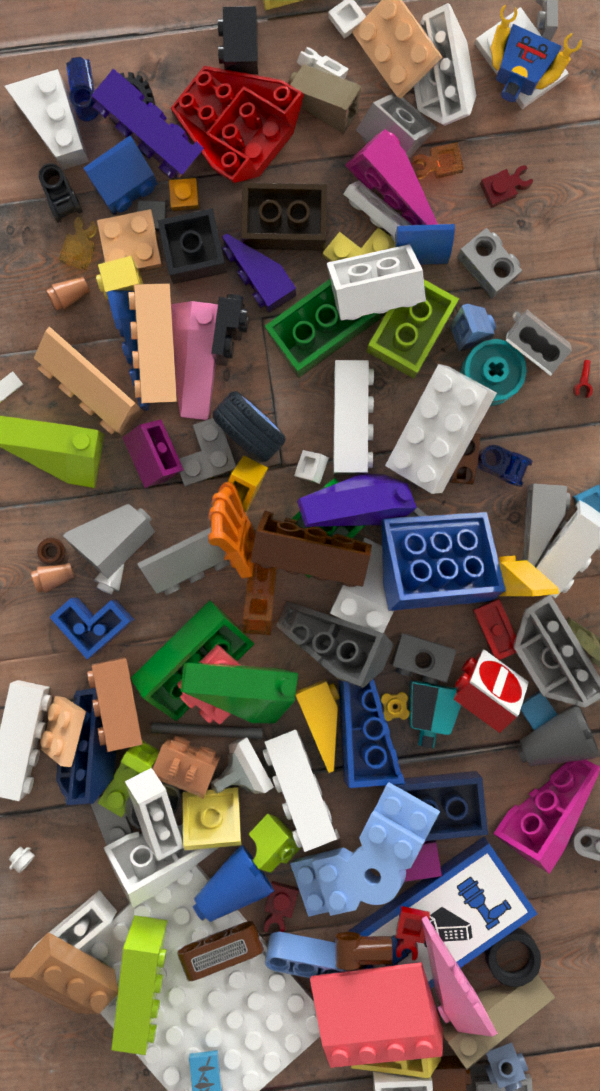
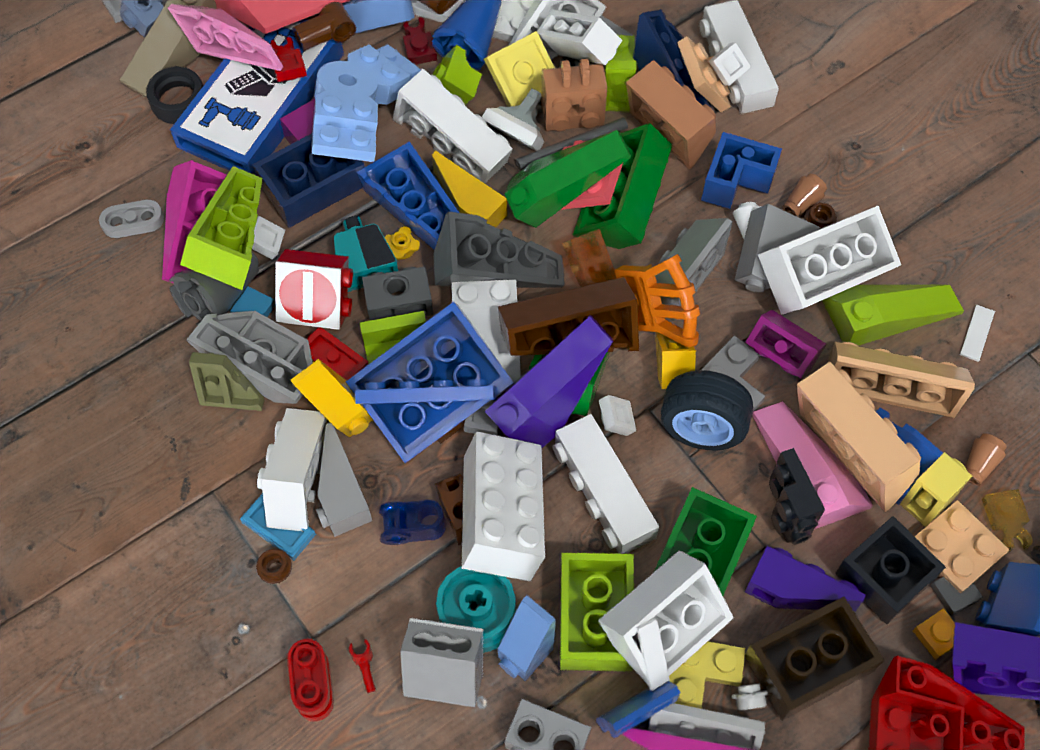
camera: 145 degrees right, 25 degrees down
(39, 722) = (729, 64): none -> white plate
(77, 497) = (829, 260): none -> white brick
(339, 218) = (750, 697): none -> white plate
(402, 257) = (653, 654): none -> white window
(444, 620) = (384, 333): none -> lime panel
(454, 541) = (440, 392): none -> plate
(501, 768) = (267, 238): none -> white plate
(544, 768) = (224, 232): none -> lime wedge

